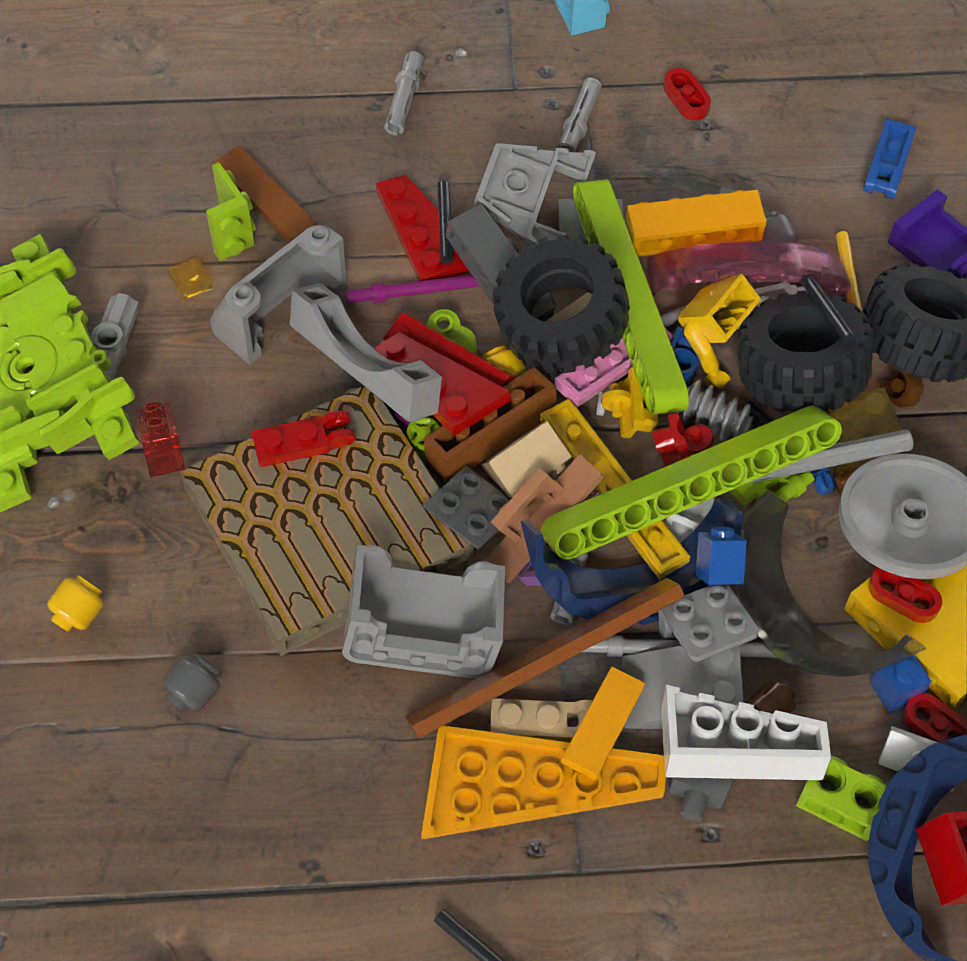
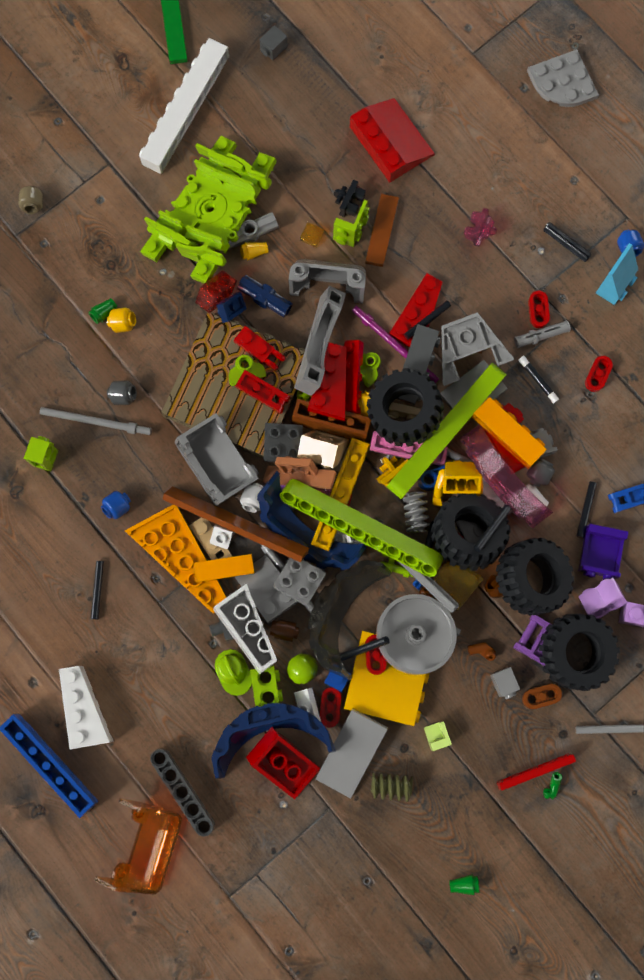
camera: 55 degrees right, 20 degrees up
(33, 623) = (101, 311): none -> green cone
(139, 362) = (252, 250): none -> yellow cone
(146, 106) = (390, 138): none -> red slope
(180, 200) = (347, 206): none -> black hips
(185, 870) = (41, 453): none -> lime brick
(202, 438) = (231, 307): none -> dark blue plate
(224, 390) = (264, 296): none -> dark blue piece
(257, 711) = (131, 428): none -> light grey bar
(327, 481) = (253, 367): none -> lime plate
(367, 819) = (115, 505): none -> blue head
(373, 473) = (262, 391): none -> red plate
(380, 79) = (483, 227): none -> clear pink hips
(407, 83) = (497, 241): light grey pin -> none
(477, 17) = (567, 241): none -> black axle
(524, 609) = (249, 498): none -> white head
(543, 100) = (539, 310): none -> red plate
(548, 690) = (221, 537): none -> white bracket
(639, 161) = (538, 379): none -> black bar
(676, 443) = (385, 508): red hips -> none
(721, 557) = (331, 565): blue brick -> none
(781, 834) = (233, 672): none -> lime piece
(845, 252) = (549, 520): yellow bar -> none
(849, 725) = (302, 668): none -> lime hair
(865, 224) = (586, 509): none -> black bar
(886, 600) = (364, 648): none -> black bar

